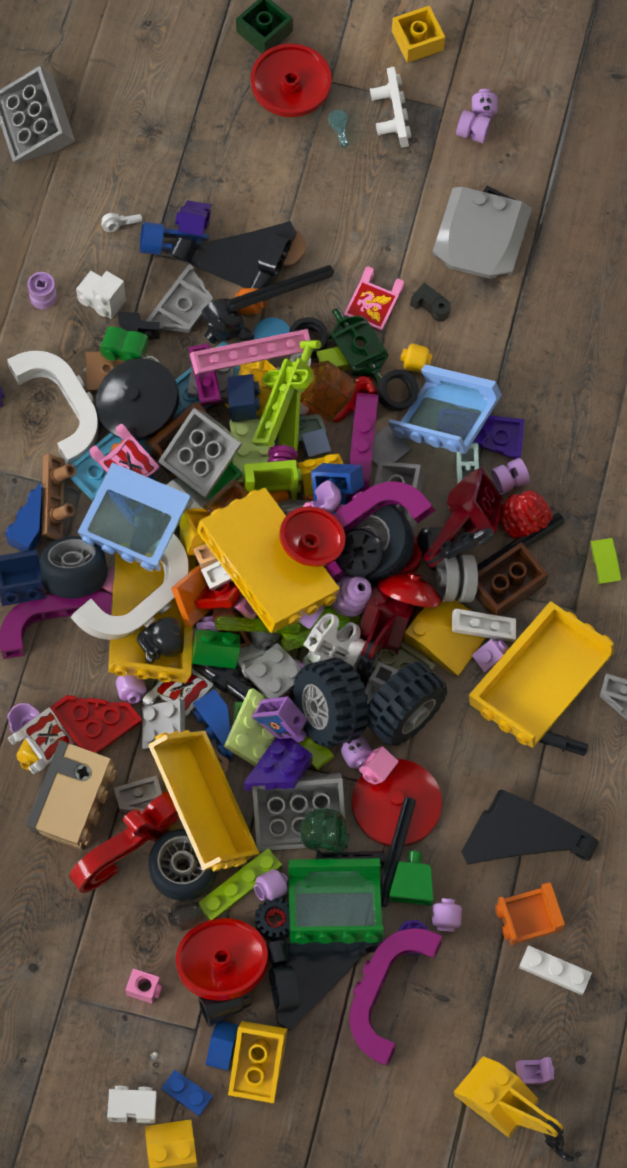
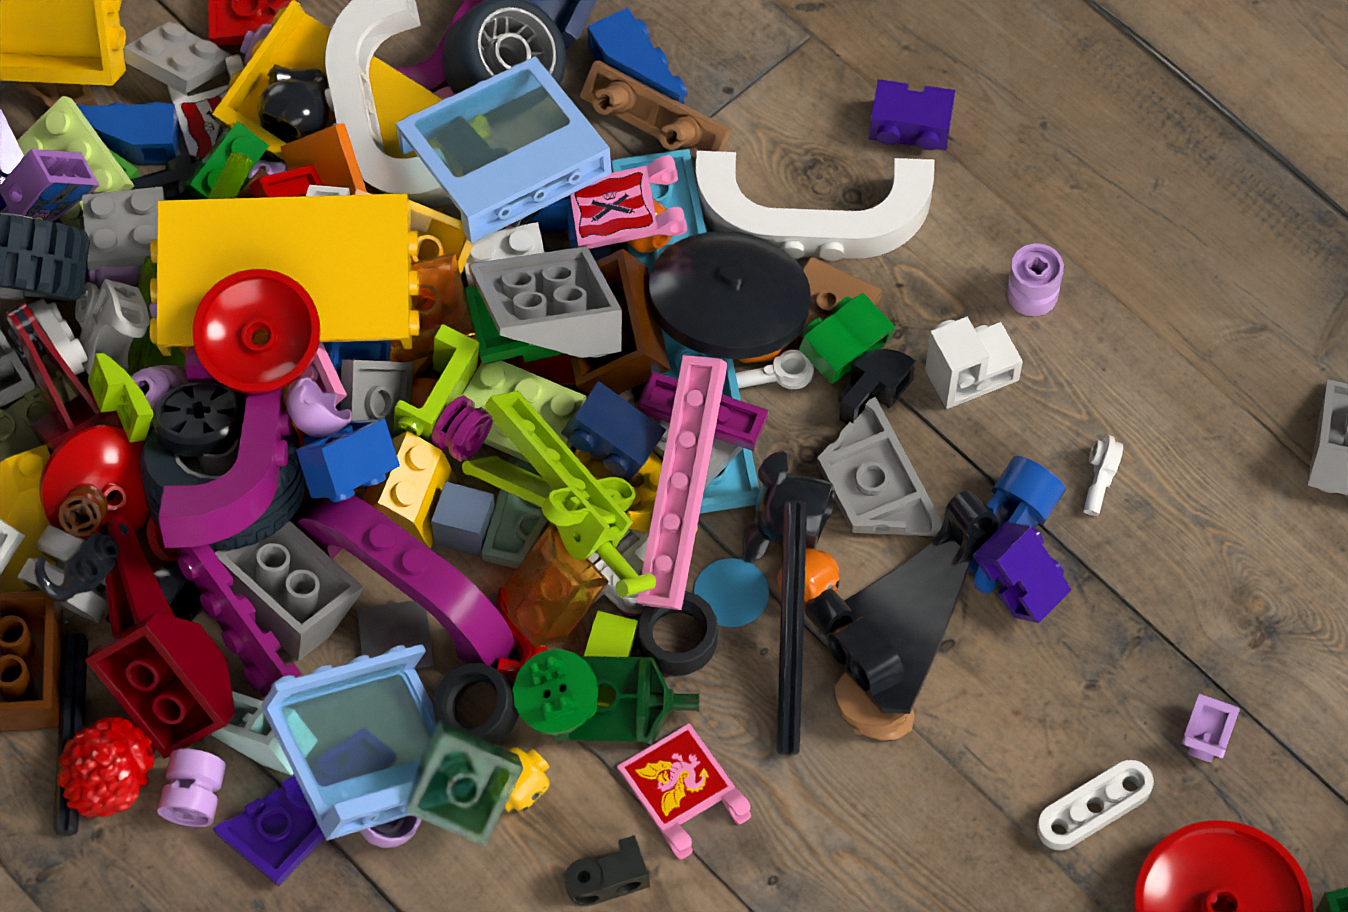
camera: 125 degrees right, 5 degrees down
(215, 124) = (1209, 728): none -> lavender bracket
(269, 143) = (1103, 790): none -> white plate
(368, 362) = (562, 710): none -> green plate
(369, 597) = (118, 392): none -> lime slope
(430, 578) = (88, 503): none -> reddish brown wheel
(434, 489) = (235, 618): none -> magenta wing
(440, 359) = (463, 783): none -> clear green slope

